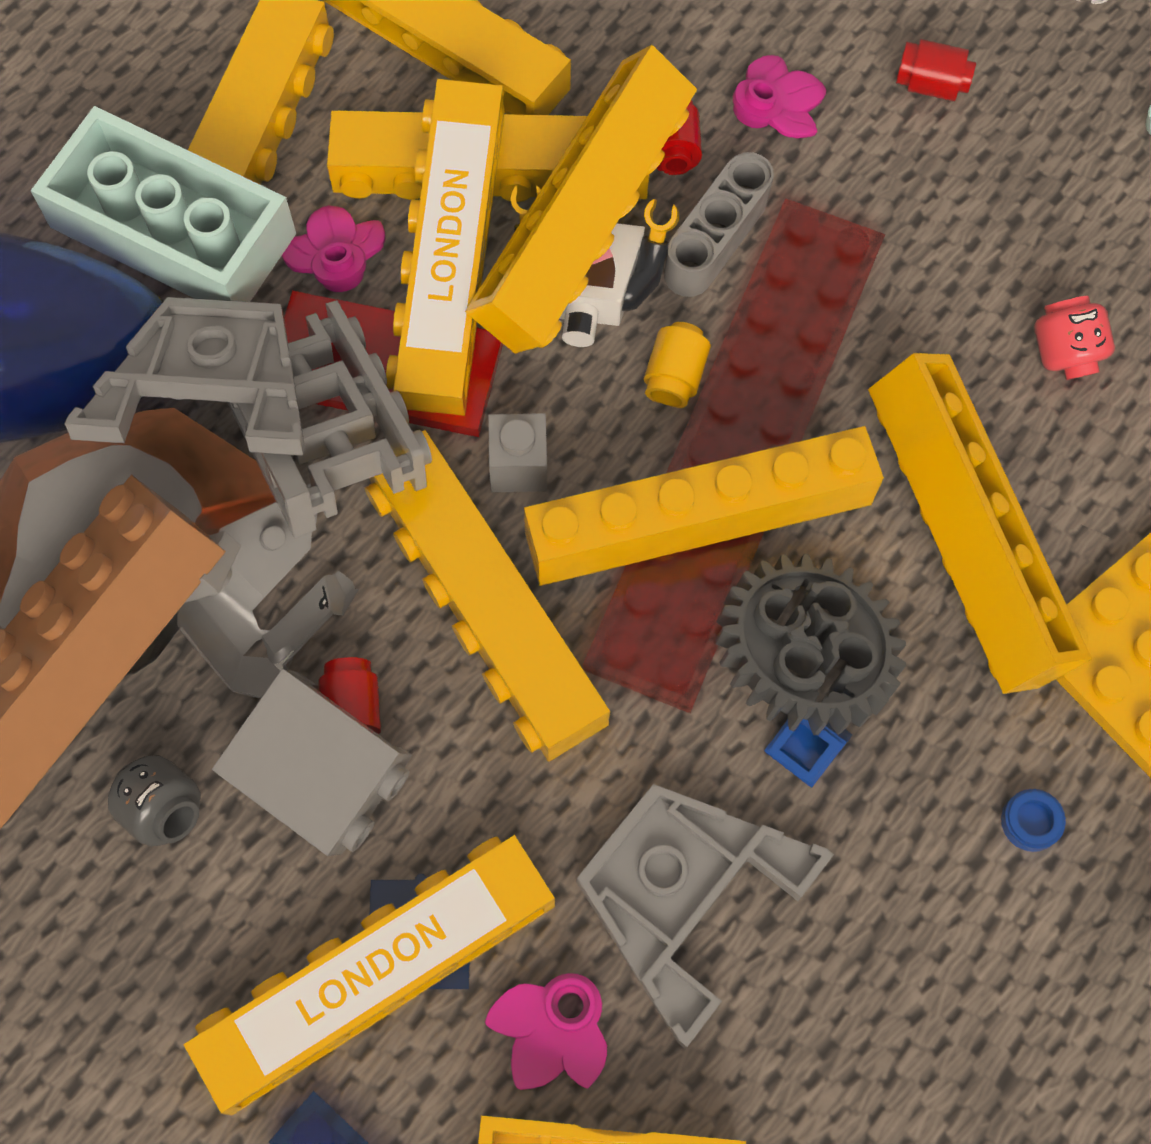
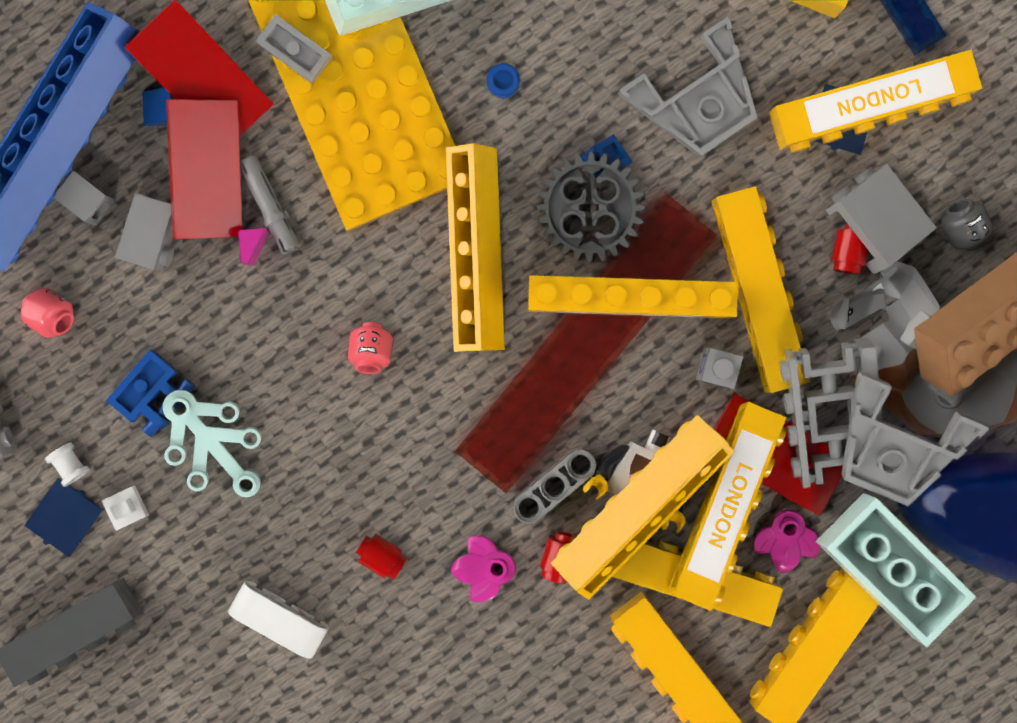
camera: 160 degrees left, 20 degrees up
(545, 1038) = (792, 45): dark pink plate -> none
(676, 364) = (608, 400): yellow brick -> none

